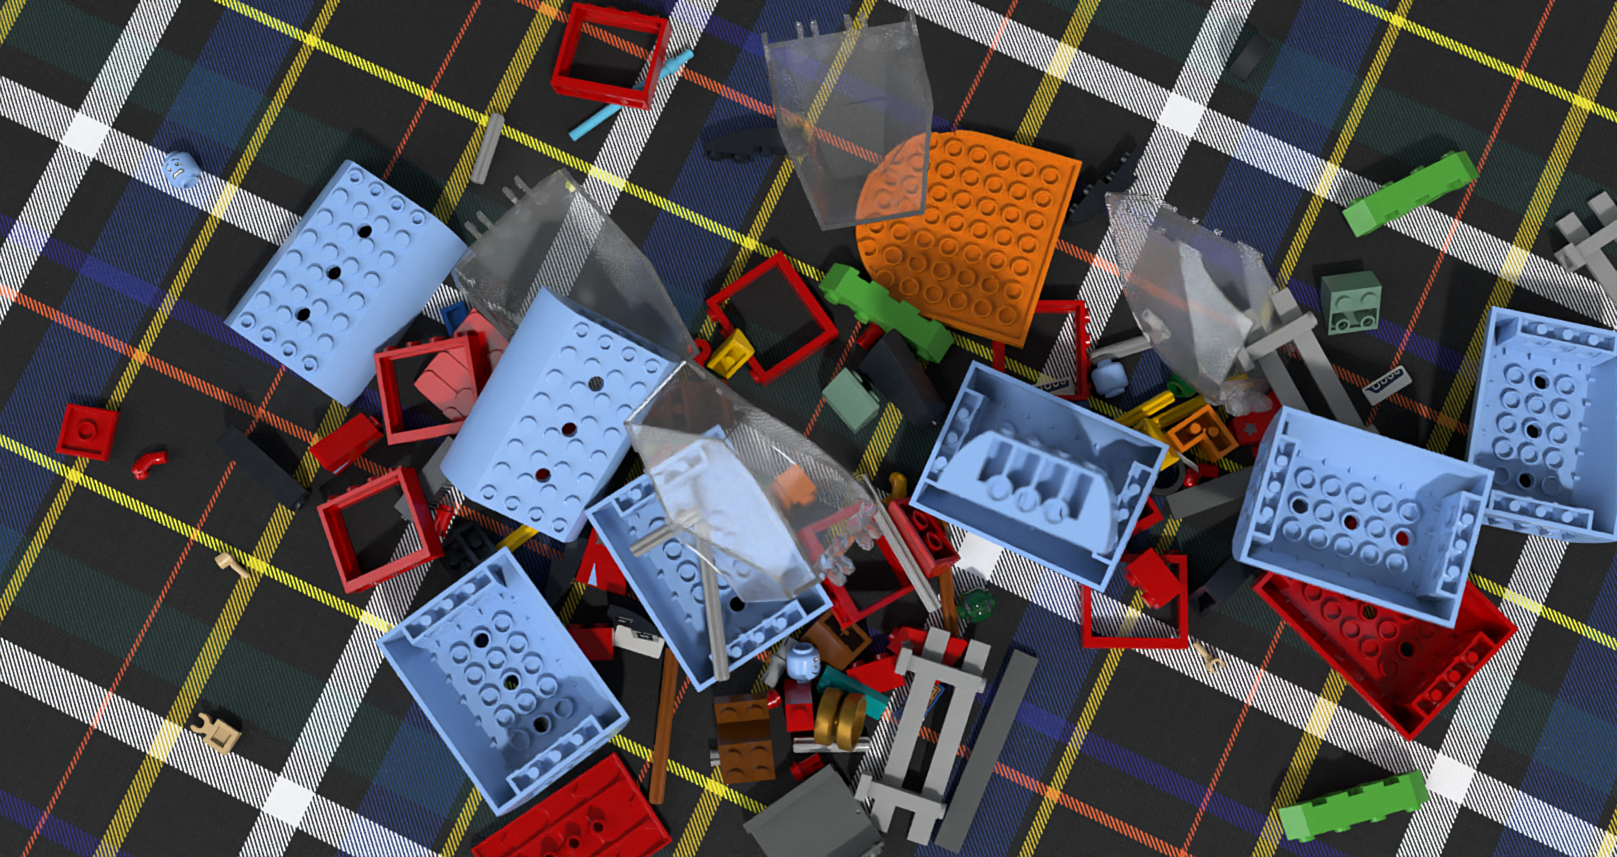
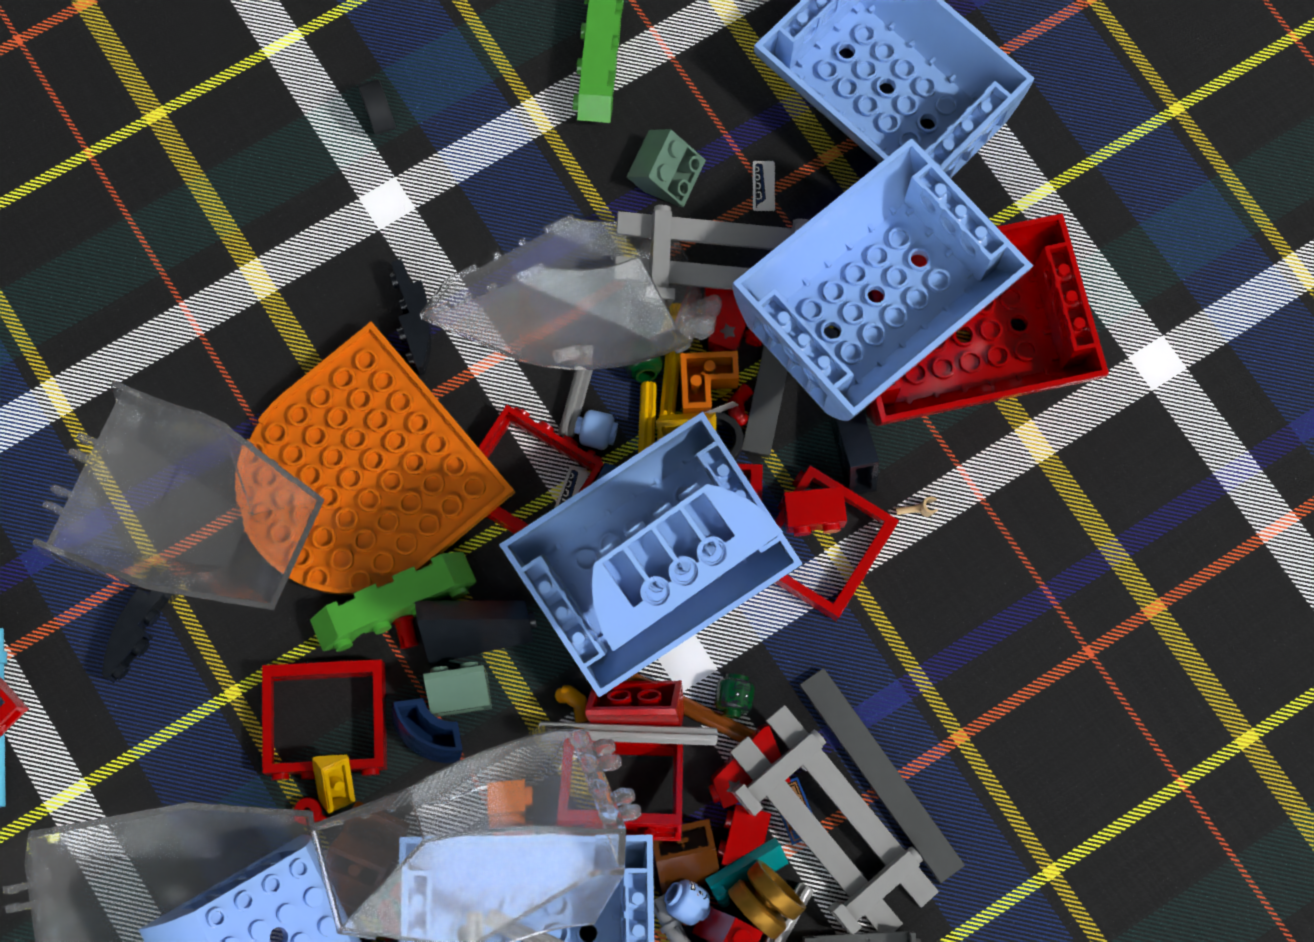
camera: 60 degrees left, 5 degrees down
(806, 397) = (425, 733): none -> dark blue brick
(1350, 806) = (1134, 463): bright green brick -> none

